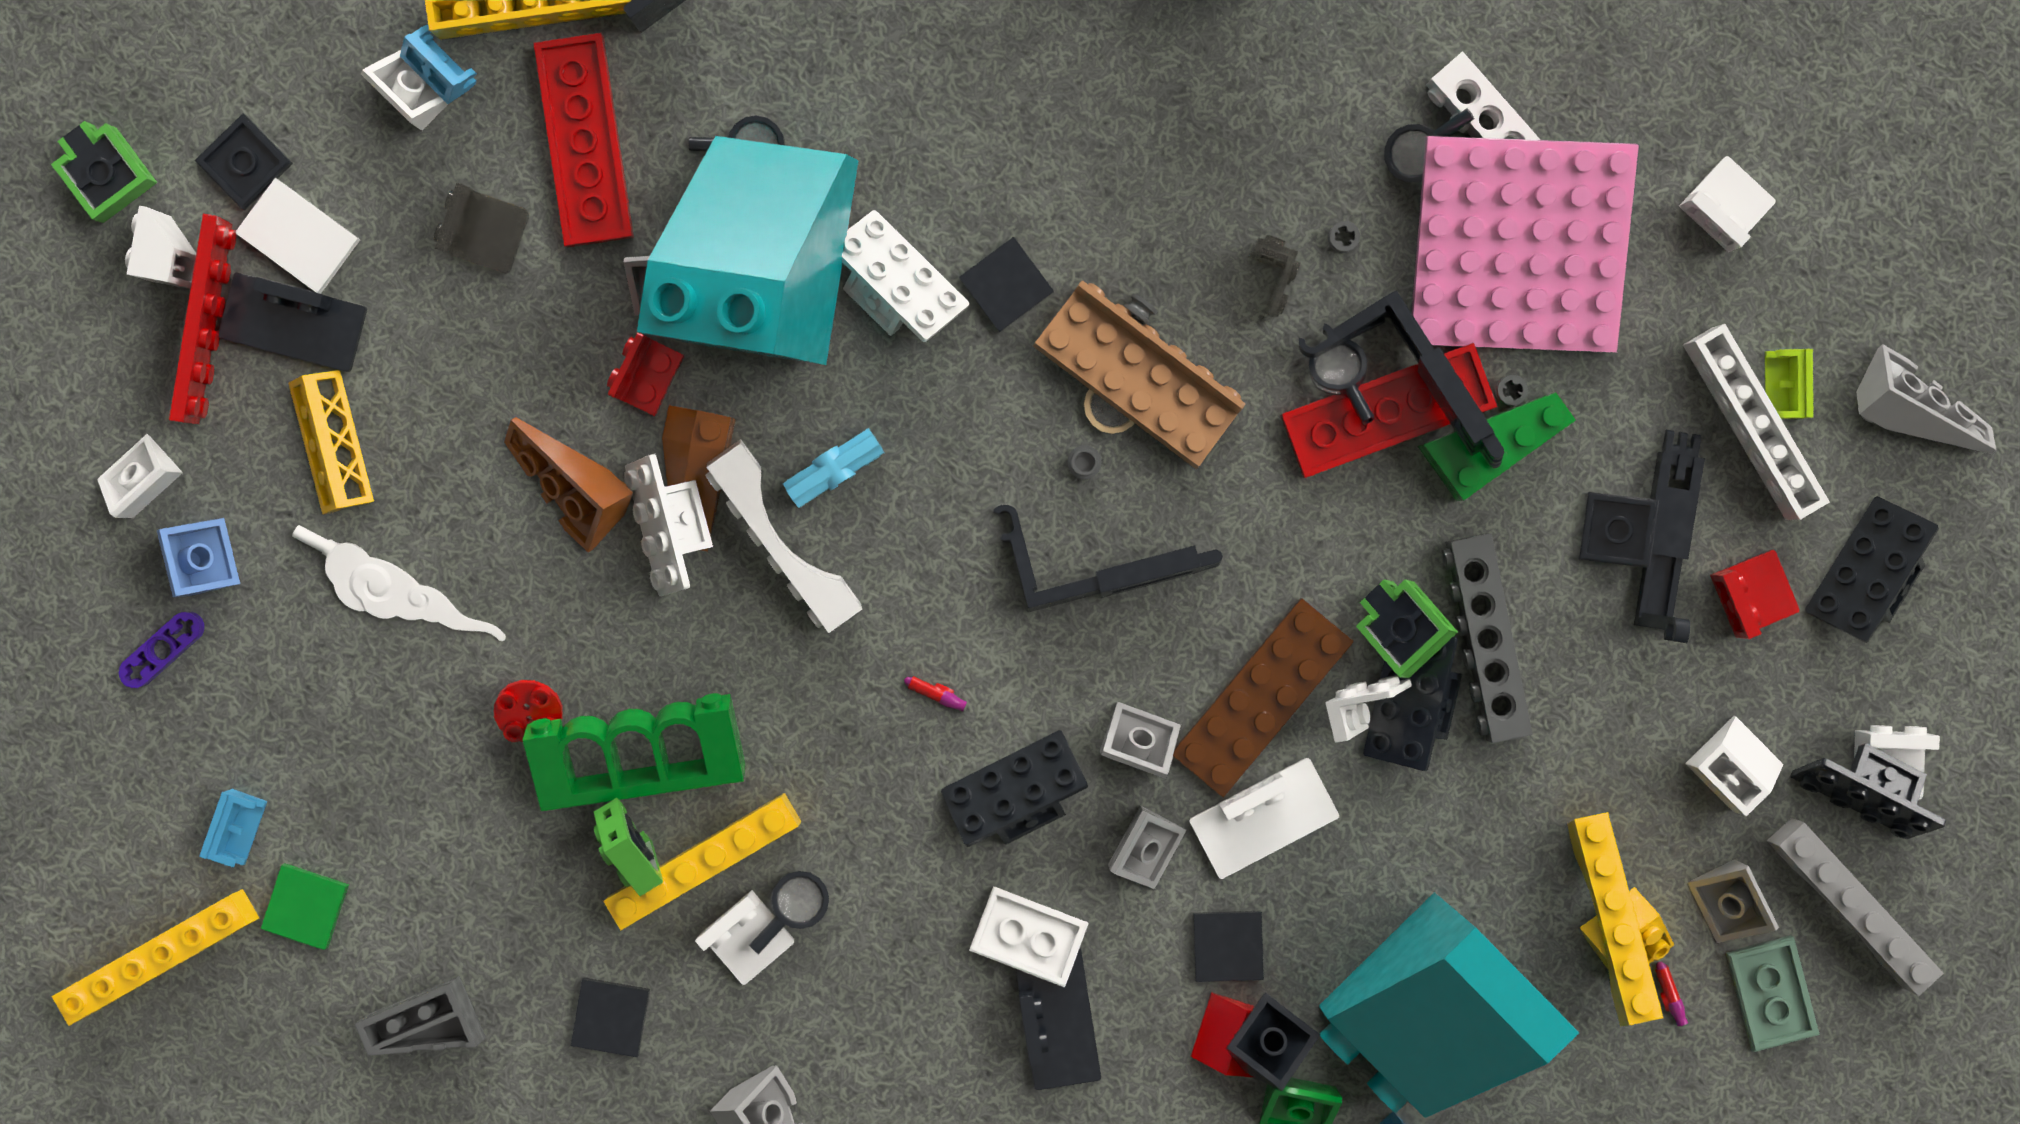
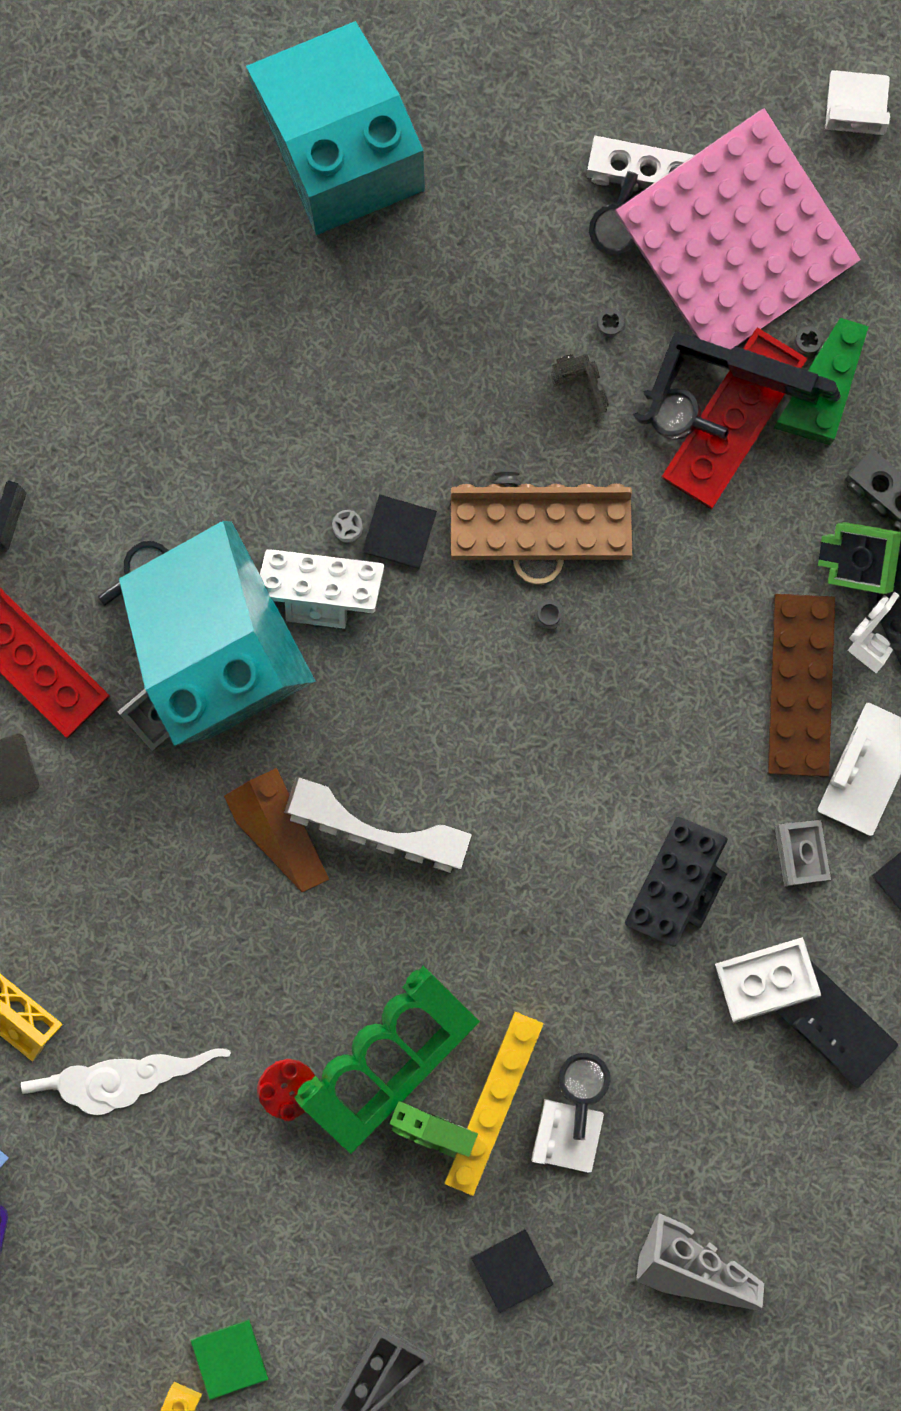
camera: 35 degrees left, 5 degrees down
(233, 828) = (136, 1339): dark azure hinge -> none
(582, 488) = (207, 901): dark orange wedge -> none
(644, 373) = (193, 785): red bracket -> none
(669, 522) = (287, 877): white bracket -> none
(833, 468) = (375, 751): medium azure piece -> none
(939, 693) = (570, 855): piece -> none
(960, 239) = (343, 522): none -> light grey wheel
(1109, 580) = (629, 684): black hinge -> none
(1140, 740) = (739, 779): light grey slope -> none

